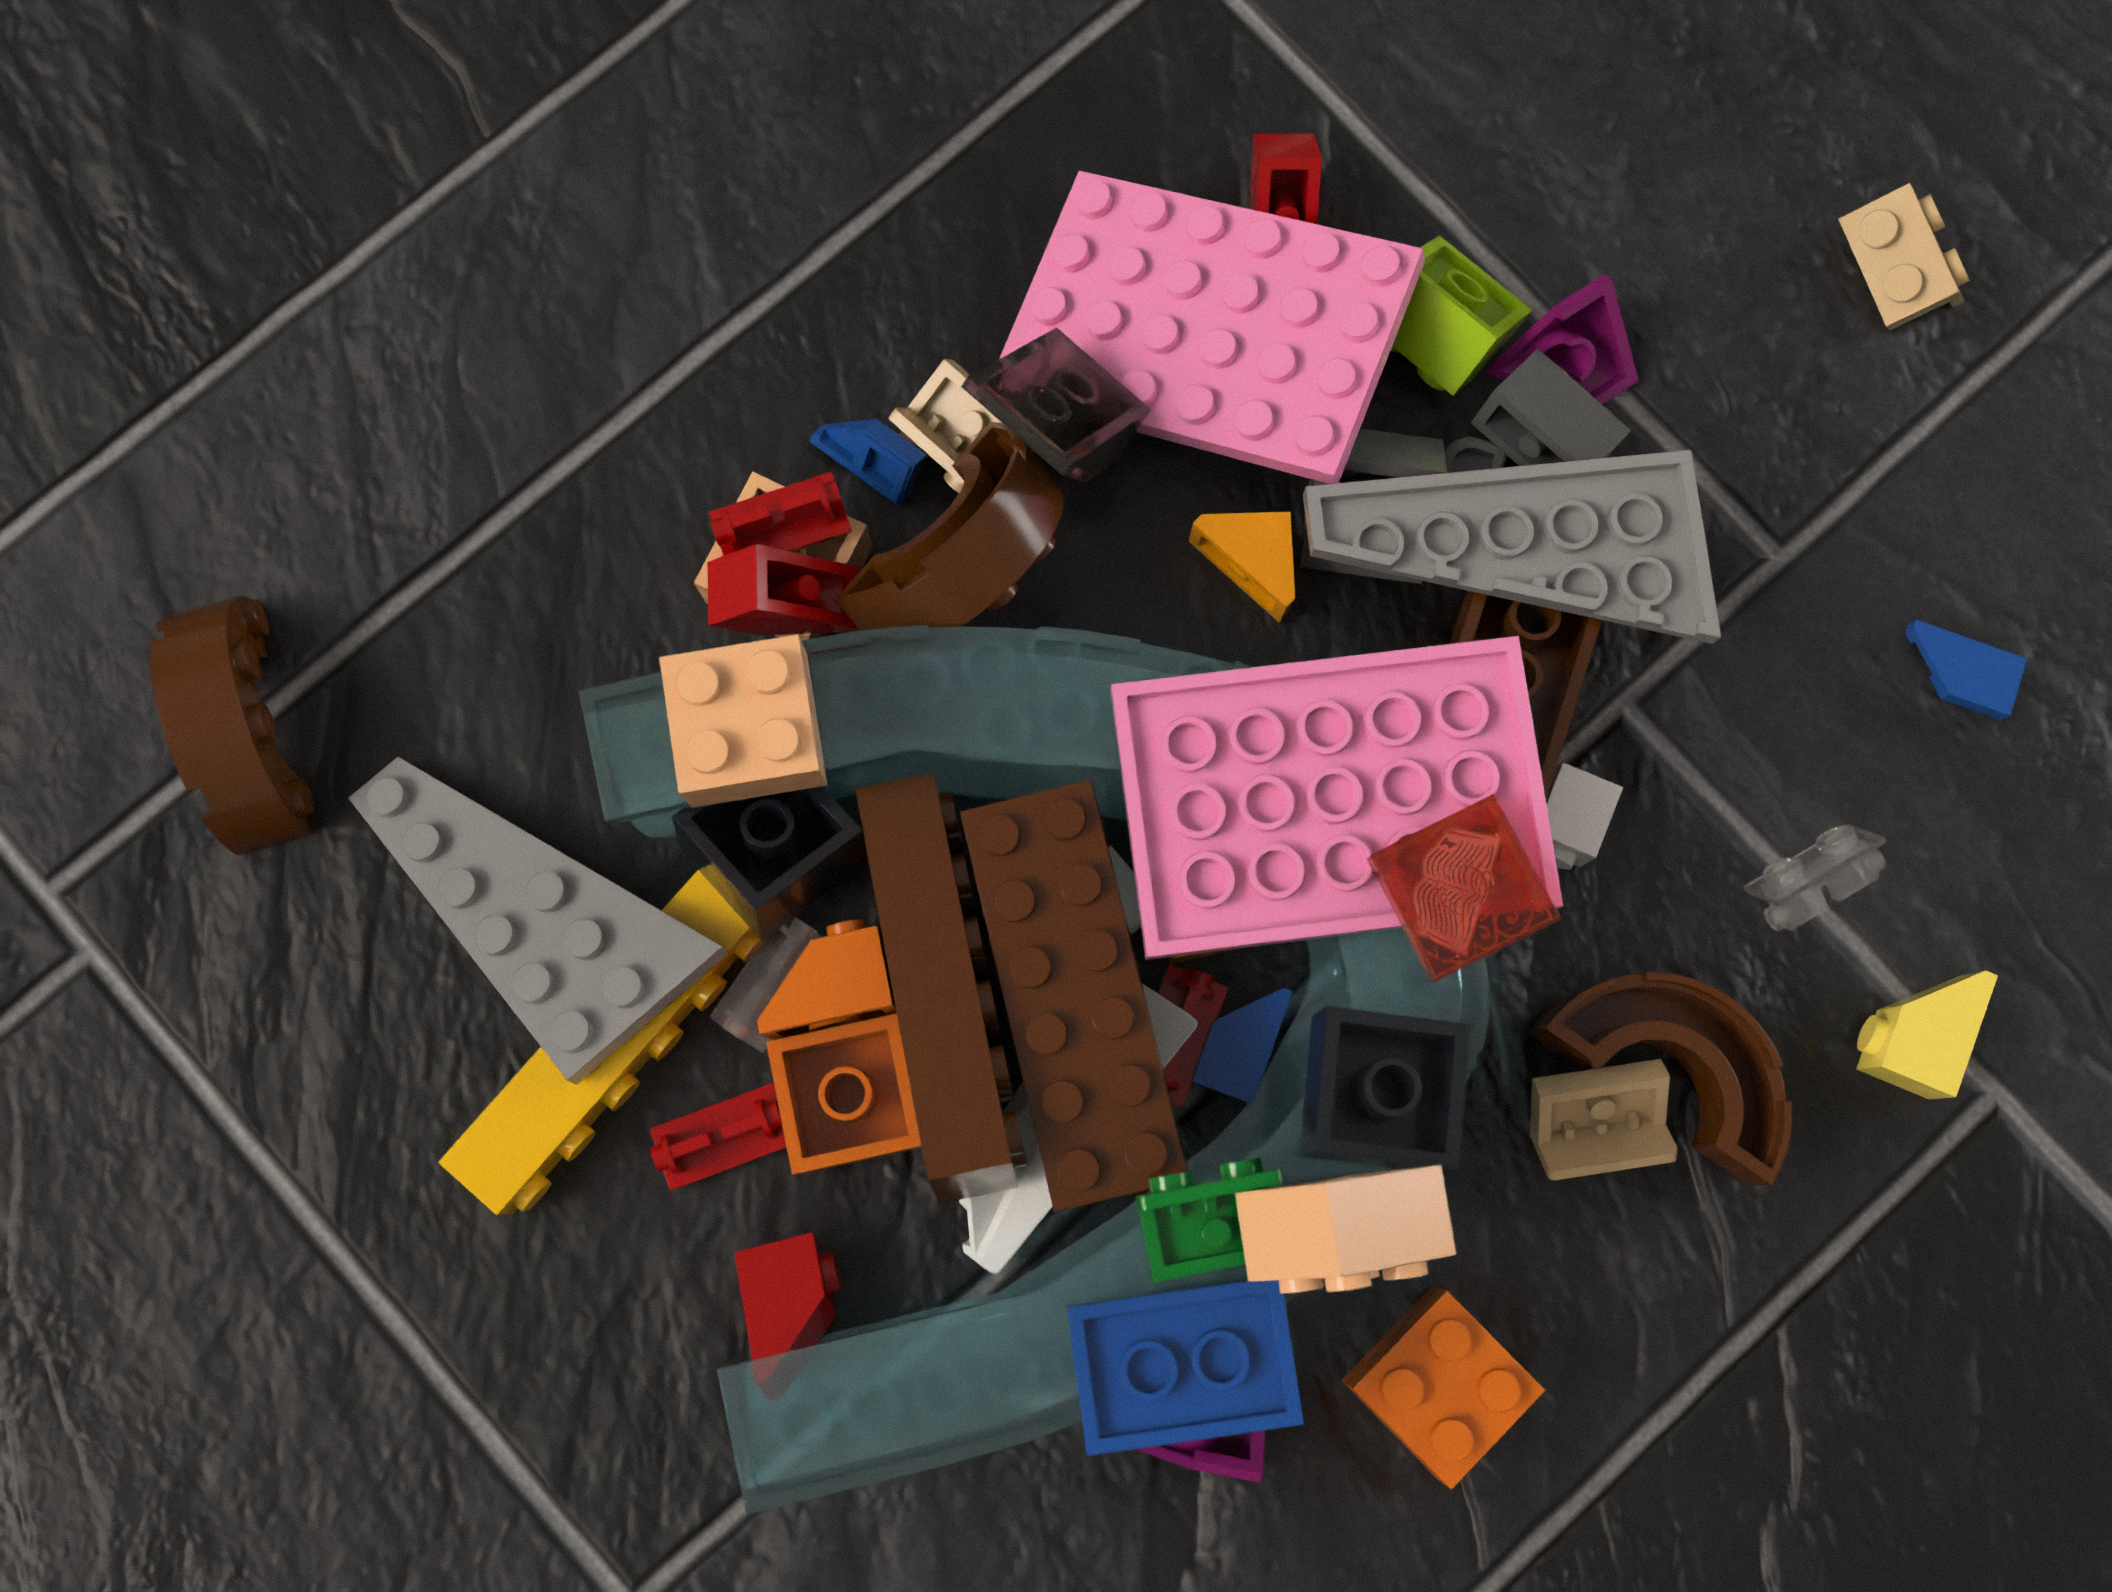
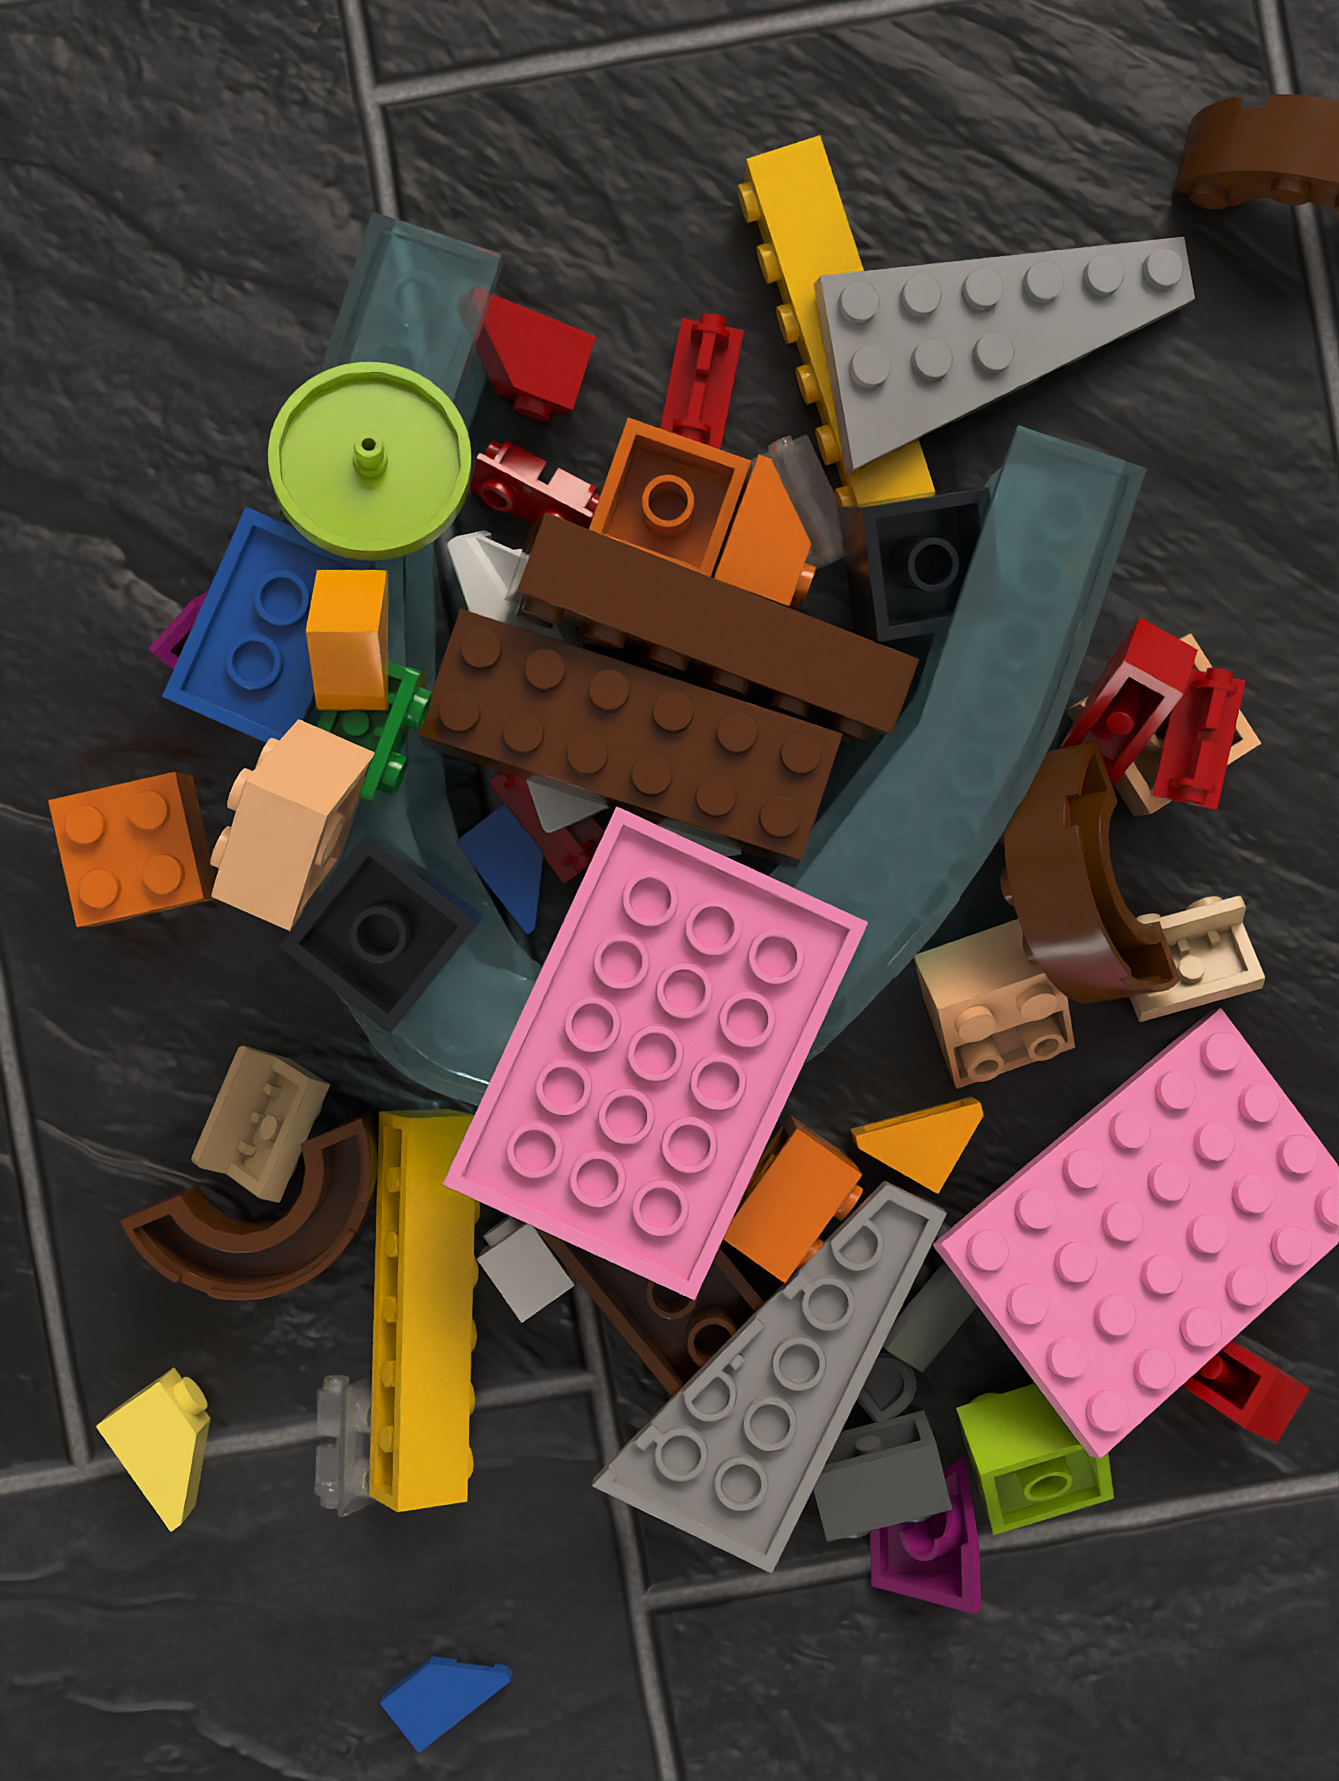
camera: 125 degrees right, 10 degrees up
(742, 721) = (1030, 587): light nougat brick -> none
(873, 455) = (1217, 864): blue tile -> none
(908, 1253) = (510, 483): none -> red hinge
(977, 1368) = (370, 461): none -> lime piece
(1060, 404) = (1153, 1041): clear smoke slope -> none
(1103, 564) = (992, 1005): none -> light nougat slope
(1148, 1281) = (349, 640): none -> light orange slope
(1372, 614) = (792, 1199): none -> orange brick
(1463, 888) = (507, 1108): clear red tile -> none
(1675, 877) = (422, 1314): none -> yellow brick

